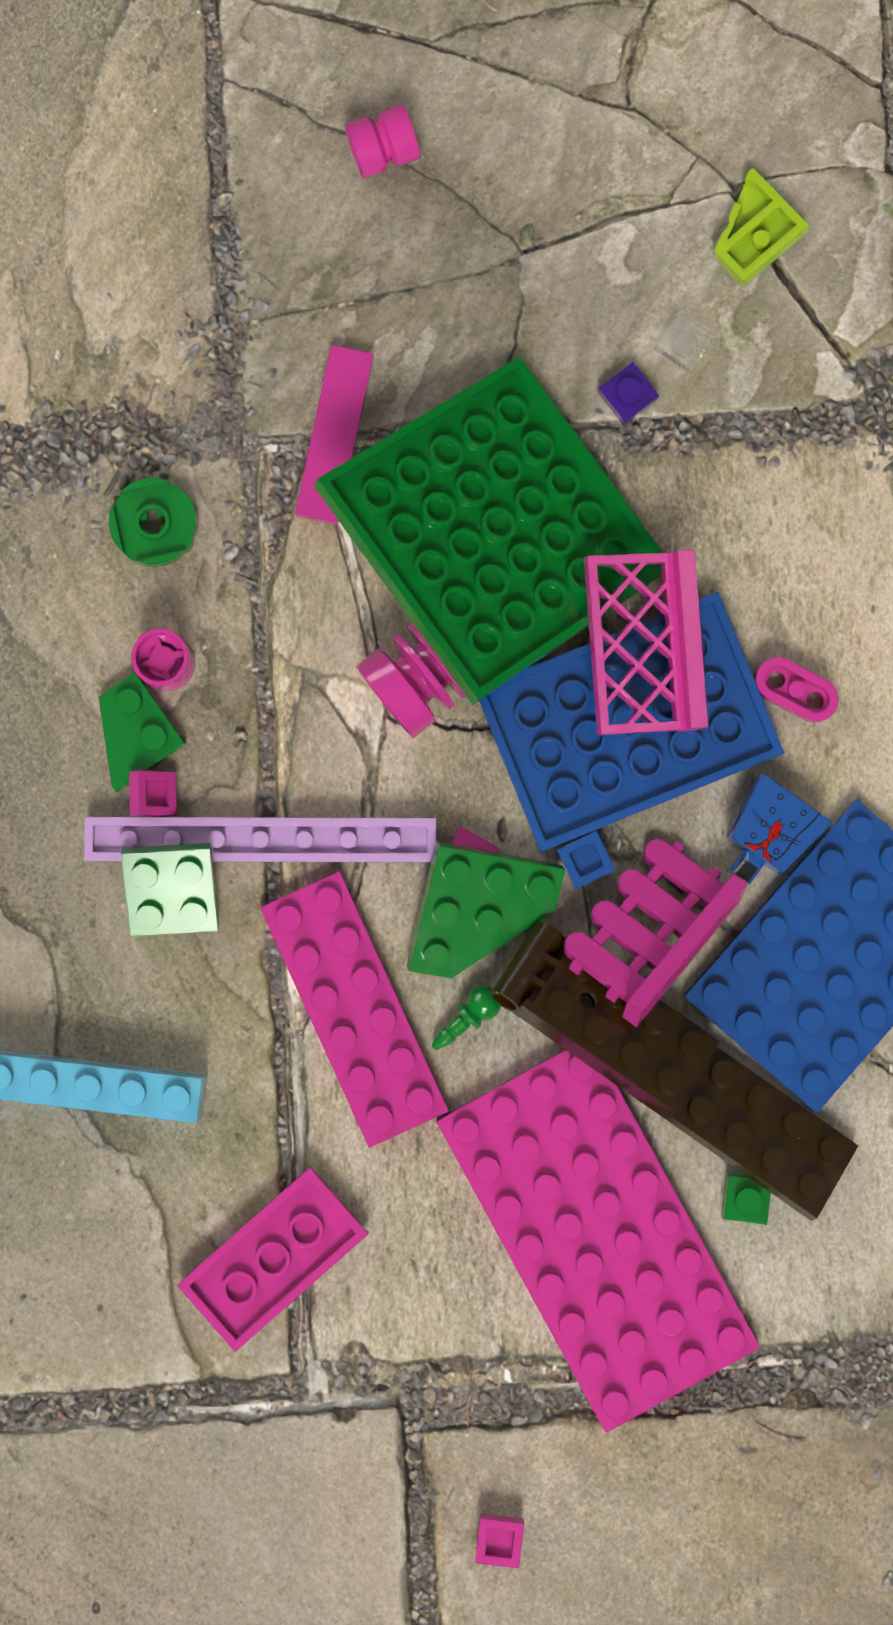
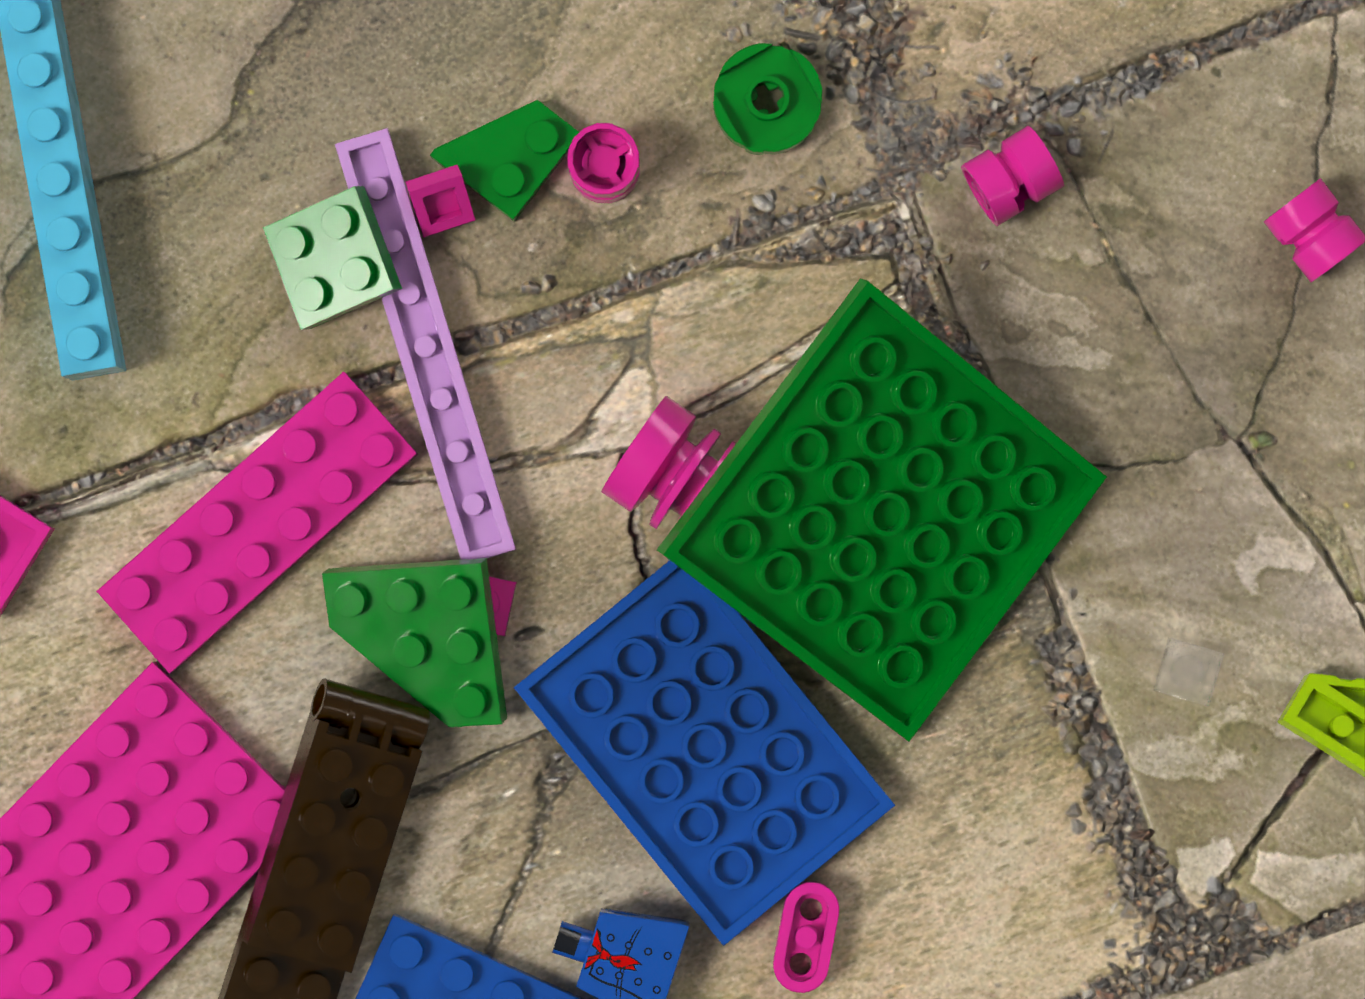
camera: 75 degrees right, 0 degrees up
(268, 348) = (1012, 176): none -> dark pink wheel
(334, 426) = (954, 280): dark pink tile -> none
(478, 1008) = (302, 670): green bar -> none
(585, 860) = (521, 745): blue plate -> none
(628, 393) = (1104, 622): dark purple plate -> none
(646, 946) = (435, 851): dark pink fence -> none
(682, 637) = (811, 781): dark pink fence -> none

